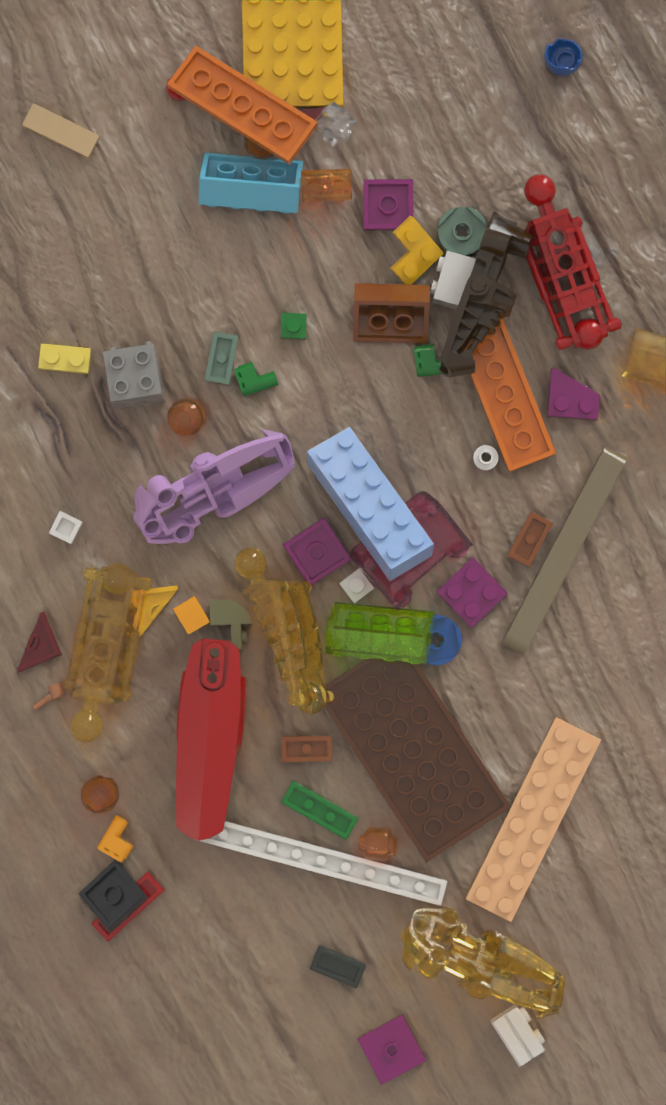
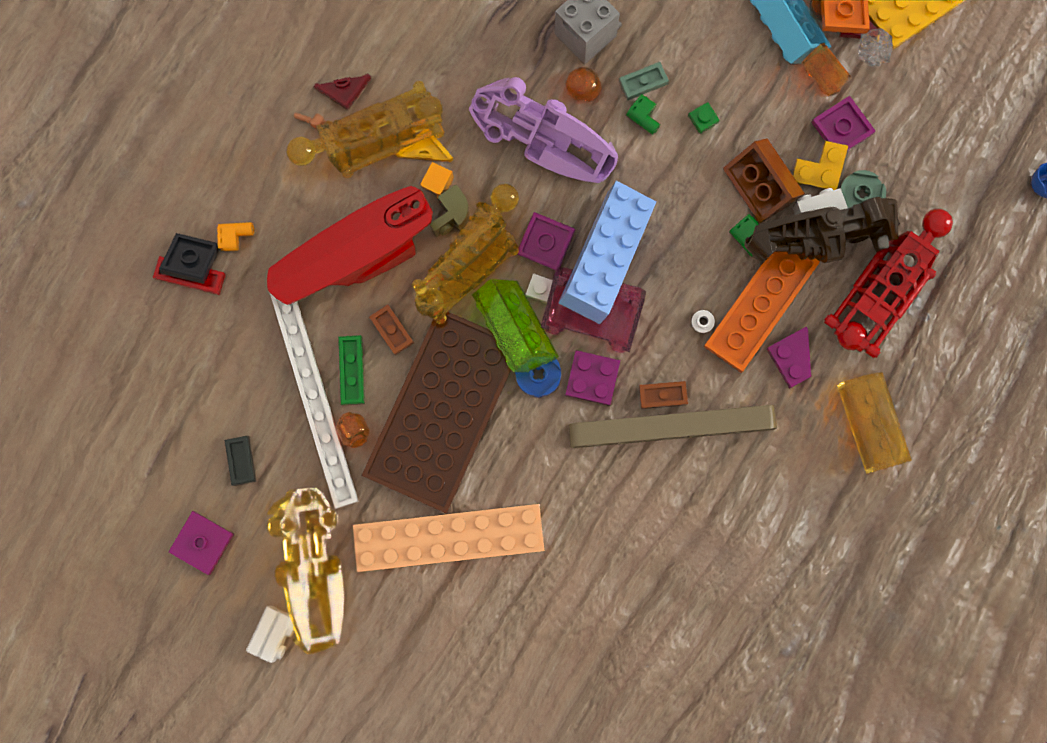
camera: 60 degrees right, 5 degrees down
(65, 527) = (442, 51): white plate -> none
(100, 794) = (259, 200): clear orange hair -> none

